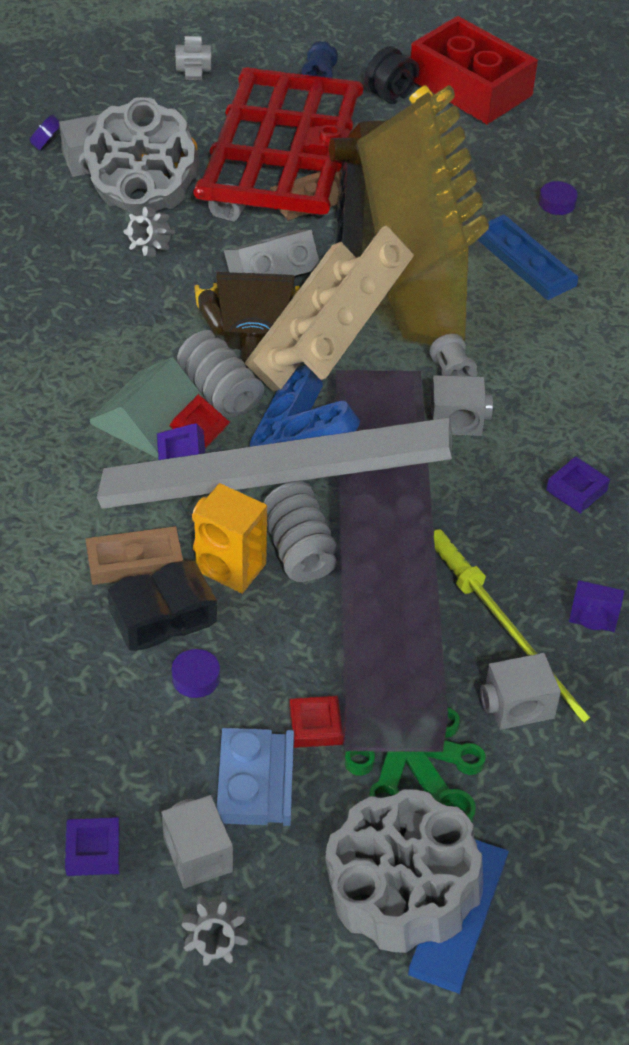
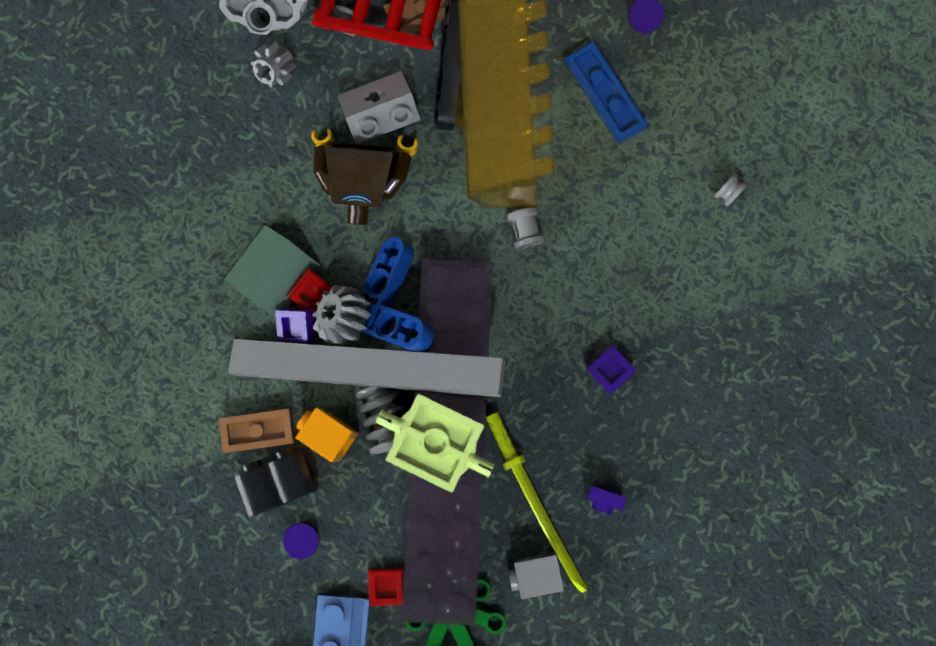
camera: 10 degrees right, 35 degrees up
(219, 374) = (326, 245): light grey piece -> none
(241, 424) = (341, 315): none -> light grey gear
(329, 309) = (401, 194): tan fence -> none
(373, 514) = (435, 443): none -> yellowish green plate
(461, 401) = (525, 282): light grey brick -> none

